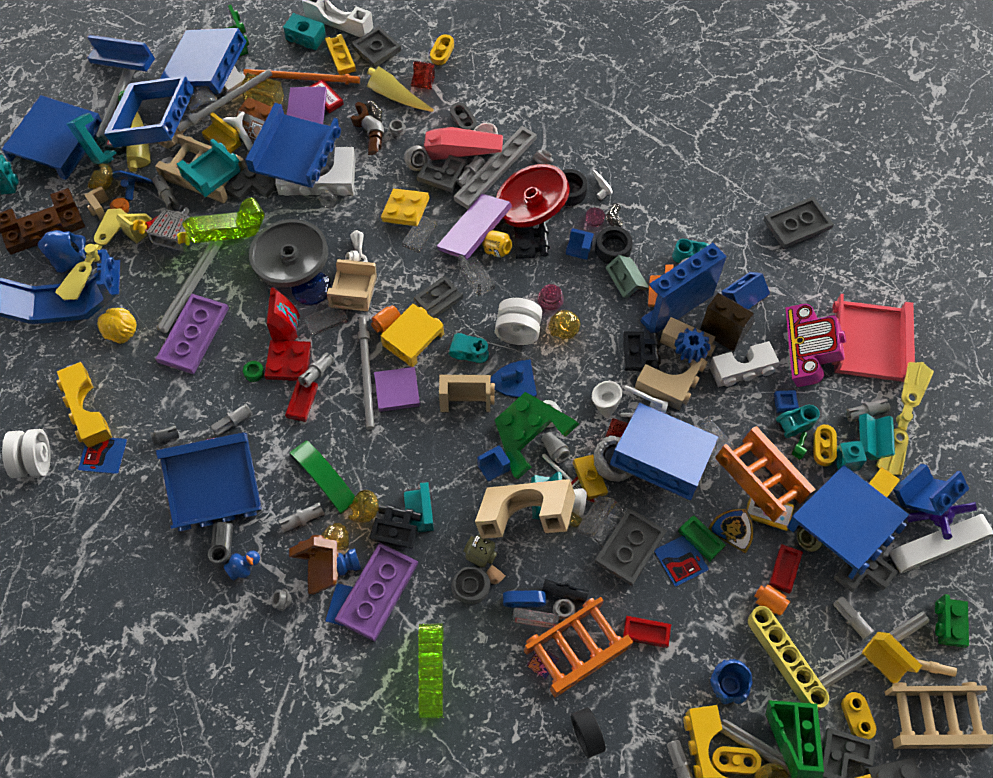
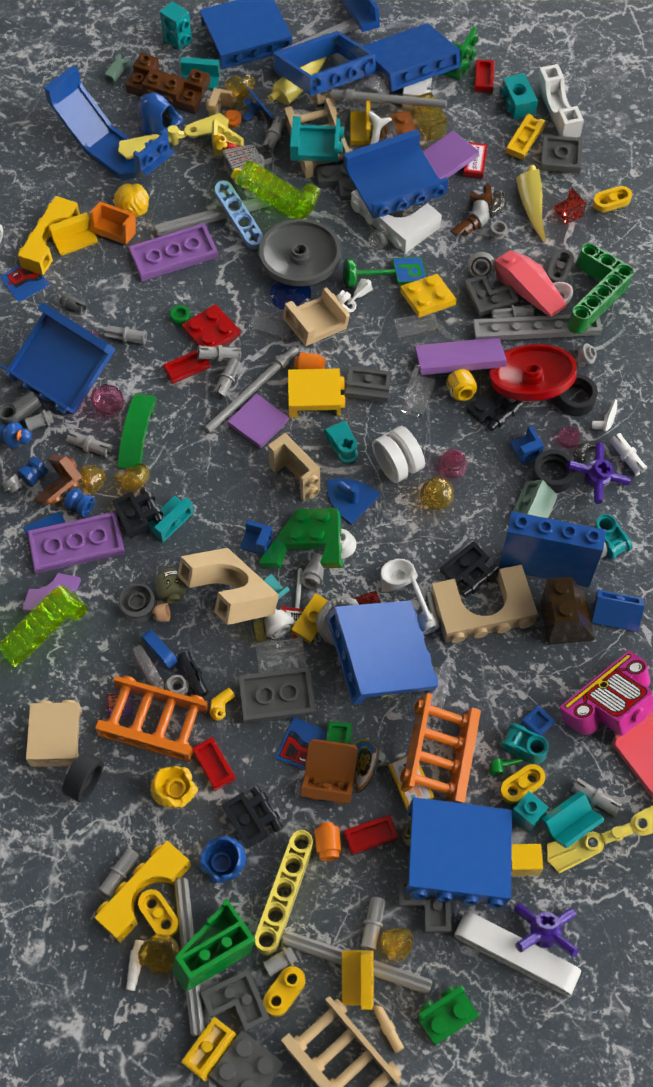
camera: 50 degrees right, 0 degrees up
(42, 194) = (205, 65): none -> teal panel
(87, 142) = (256, 50): teal panel -> none
(101, 388) = (73, 234): none -> yellow panel
(124, 352) = (113, 223): none -> orange panel
(213, 263) = (236, 216): none -> light blue beam
(245, 537) = (39, 420): none -> light grey pin
(263, 37) = (484, 76): none -> red tile
(279, 475) = (107, 400): none -> clear pink hair
(282, 317) = (238, 293): red slope -> none
(286, 576) = (32, 471): none -> blue wheel
(342, 381) = (226, 378): none -> light grey axle
(347, 79) = (507, 160): orange bar -> none
(368, 202) = (406, 270): none -> green piece
(406, 646) = (35, 596): none -> medium lavender tile
(506, 95) = (614, 281): none -> green beam
(529, 727) = (53, 733): none -> tan panel
(602, 591) = (218, 703): none -> yellow arm
(640, 195) = (628, 454): none -> white pin
(641, 221) = (598, 473): none -> dark purple bar
(647, 673) = (173, 787): none -> yellow hair
(687, 339) = (496, 601): blue gear -> none
(708, 642) = (244, 819): none -> black plate
(722, 557) = (329, 771): none -> dark orange bracket
(728, 370) = (553, 671): white arch -> none
(835, 703) = (280, 961): none -> light grey pin
(881, 613) = (397, 943): none -> clear yellow cone
(927, 494) = (555, 901): blue panel -> none

